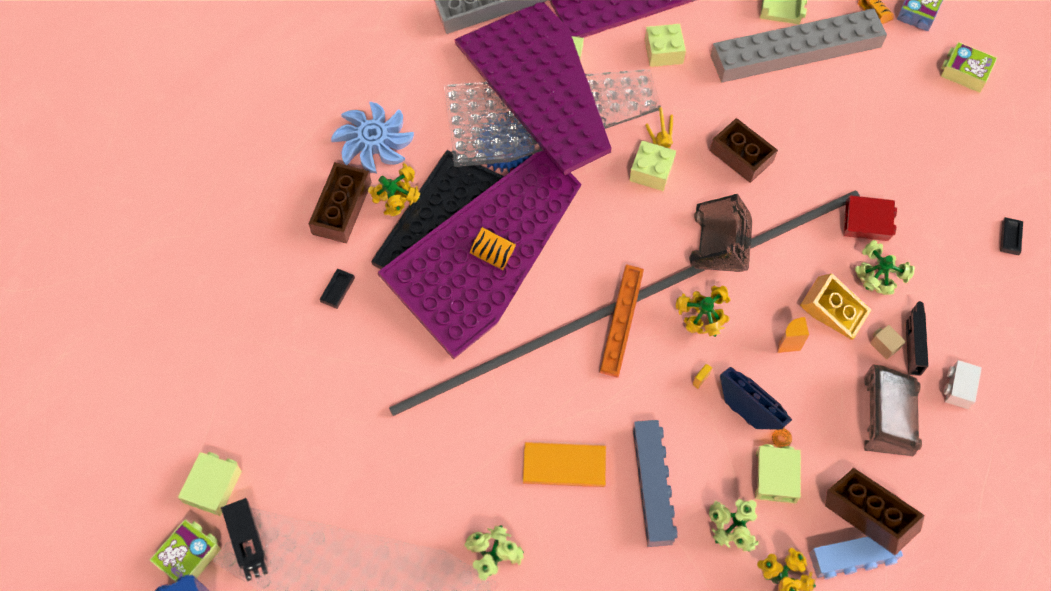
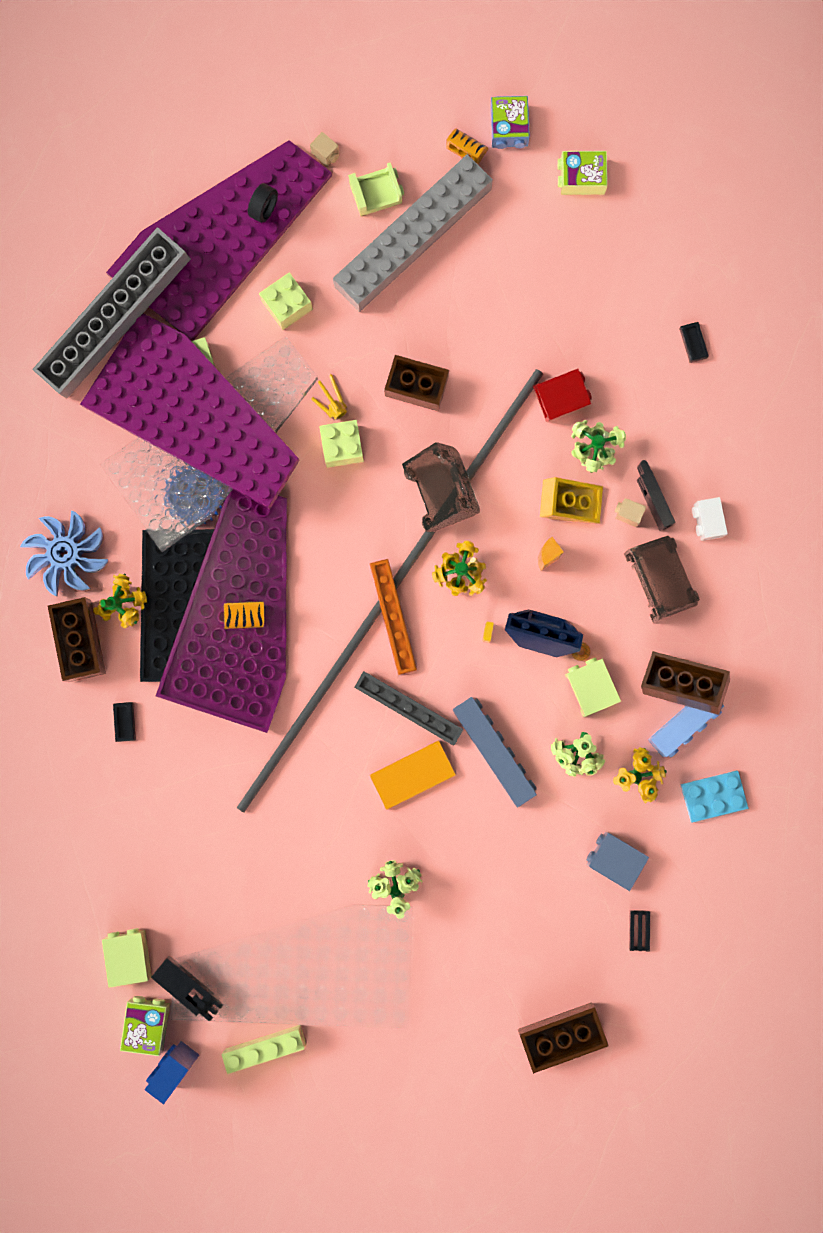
camera: 25 degrees left, 20 degrees up
(594, 405) = (408, 708): none -> dark grey plate

